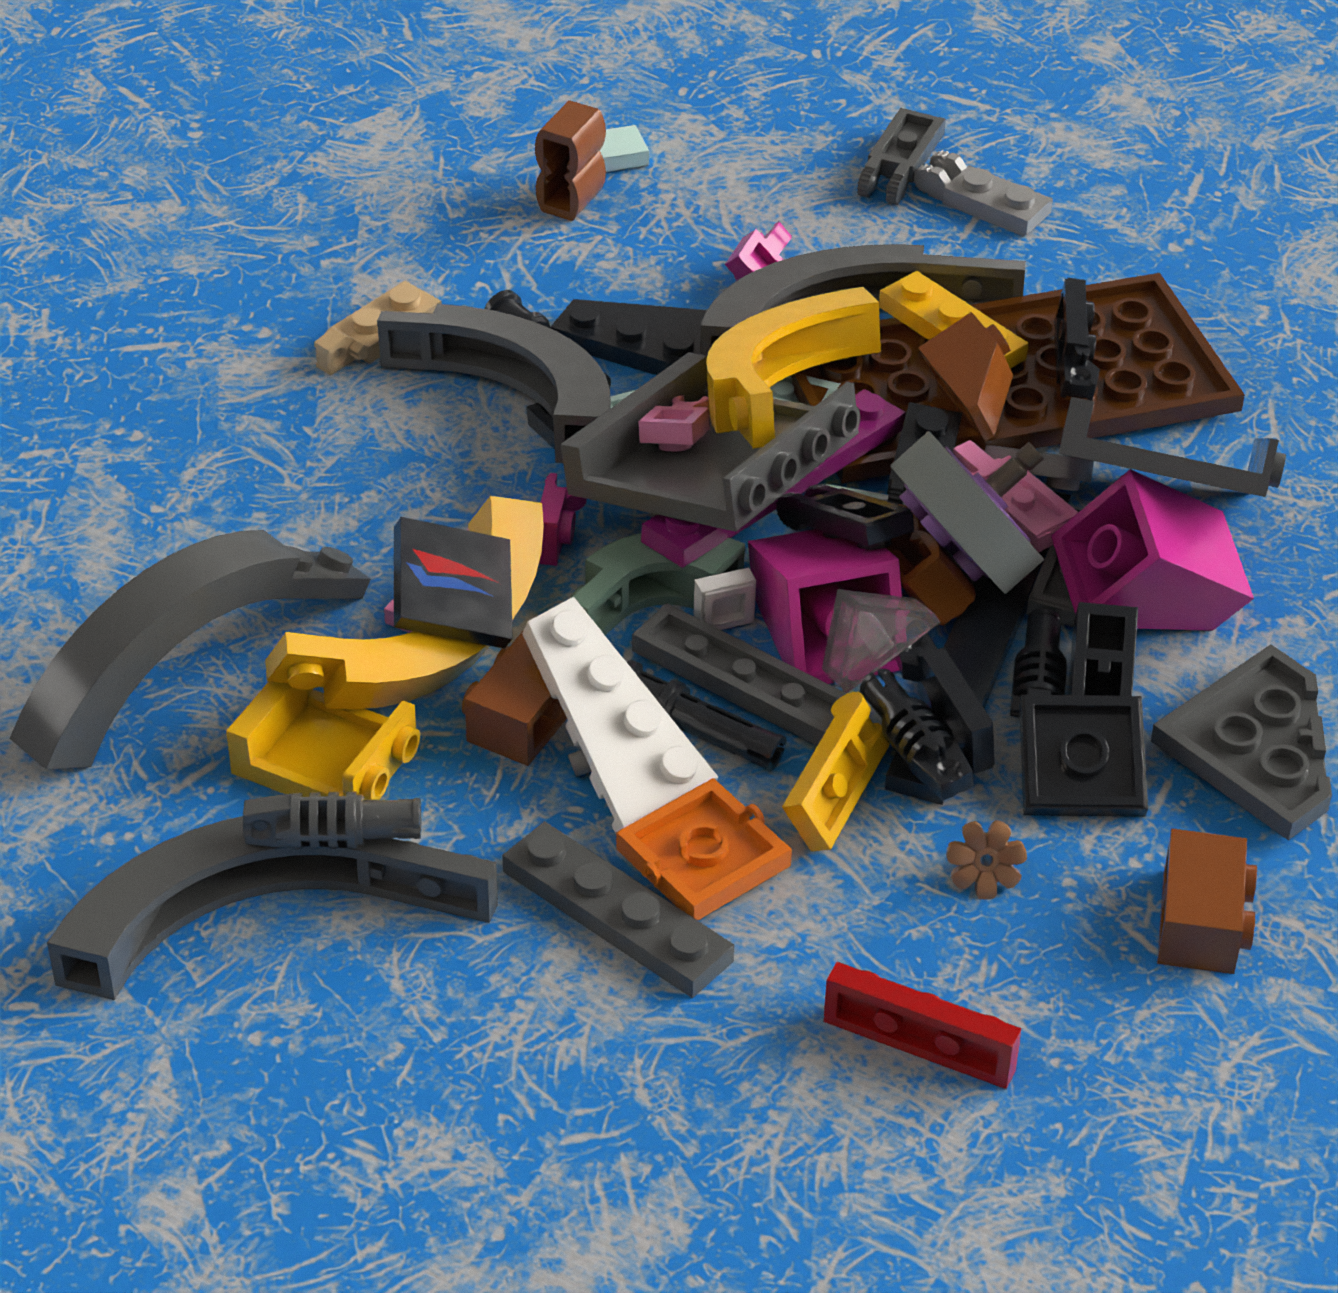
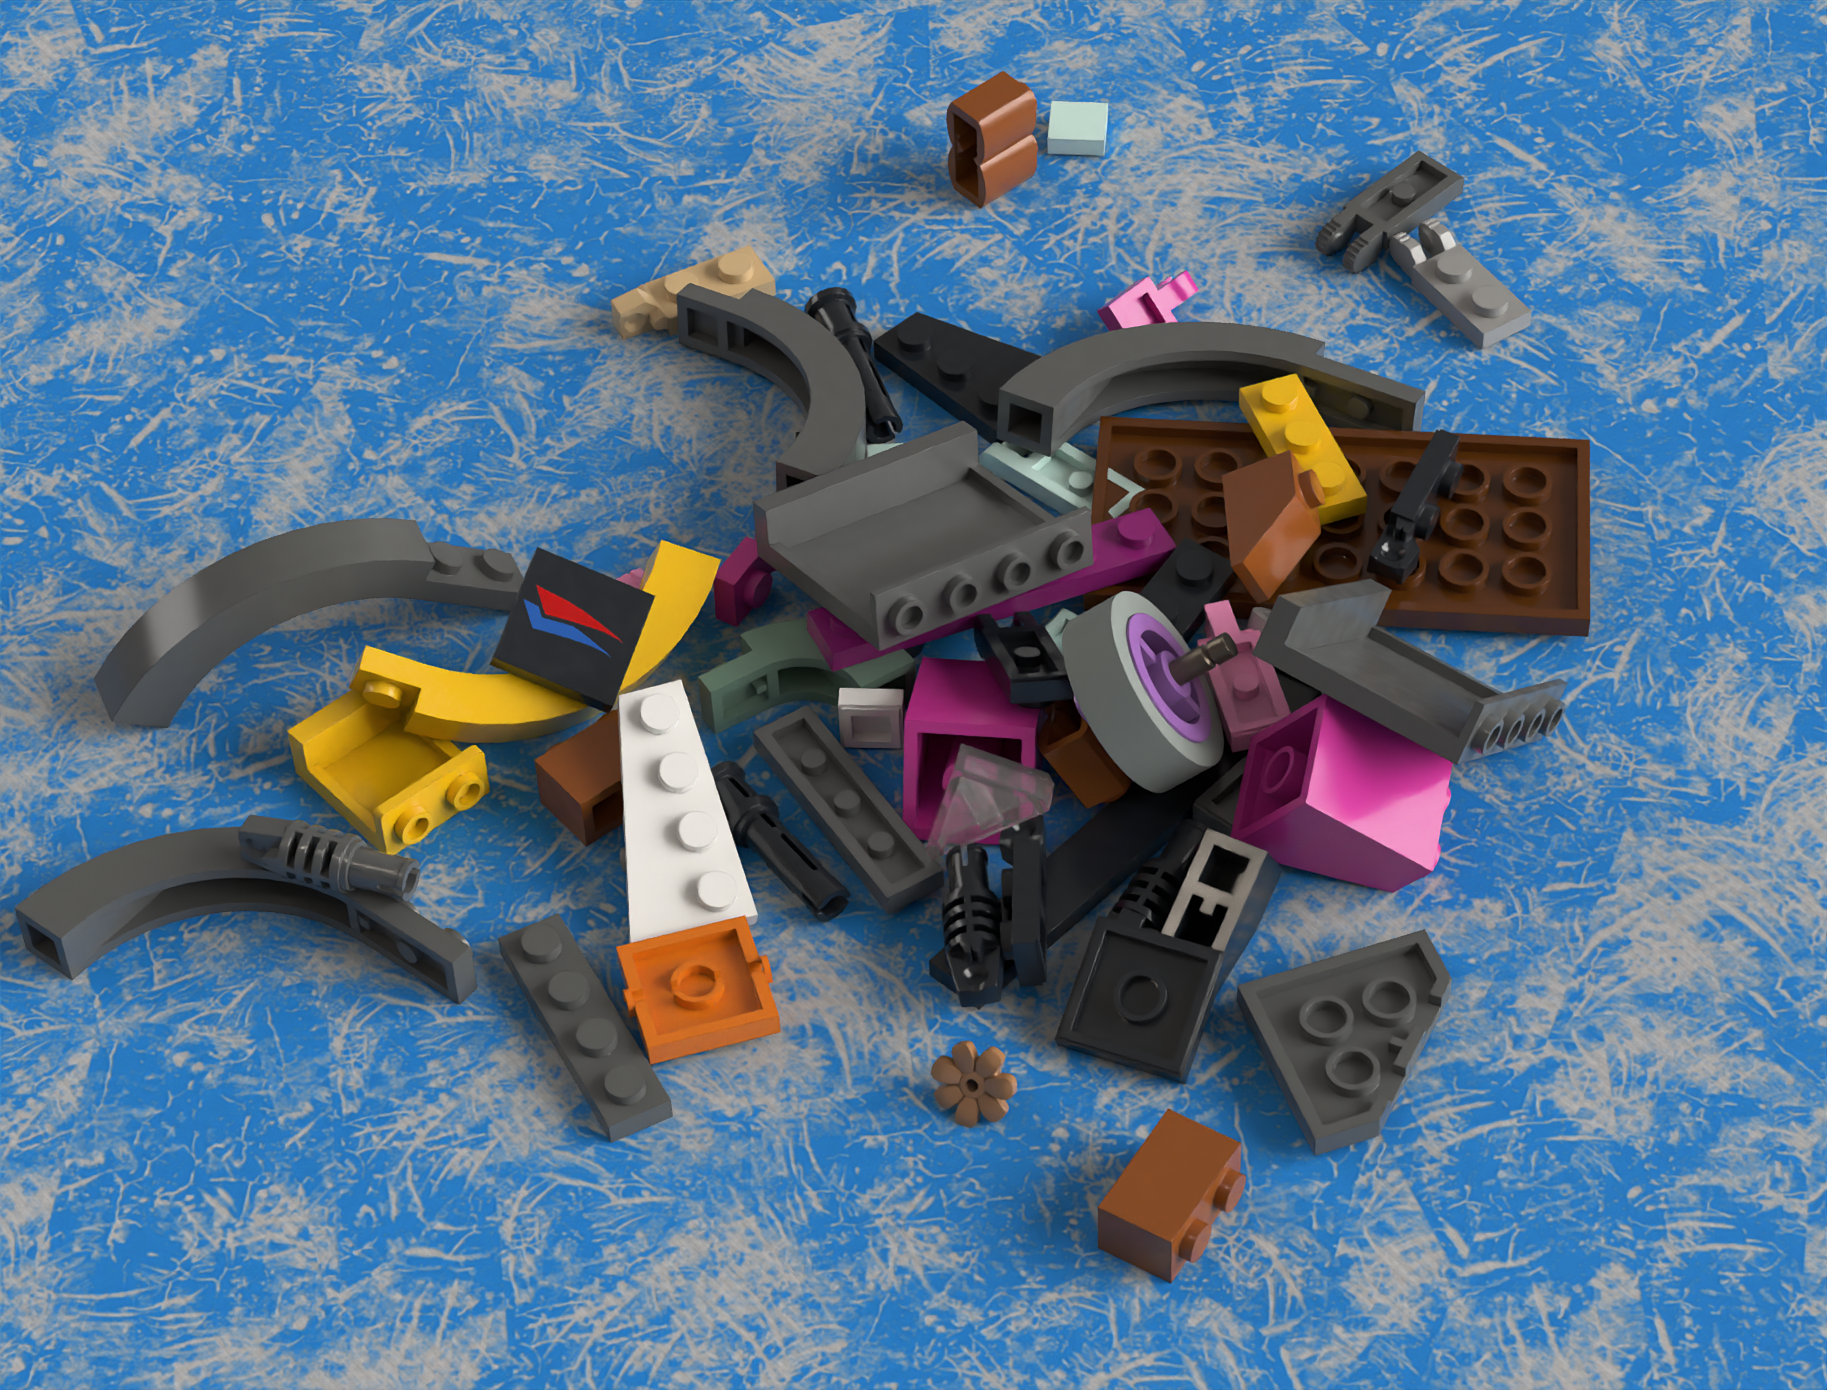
camera: 25 degrees right, 5 degrees up
(676, 425) = (900, 506): bright pink plate -> none
(779, 344) = (1054, 438): yellow arch -> none
(836, 773) = (871, 945): yellow plate -> none
(922, 1024) = (804, 1239): red plate -> none

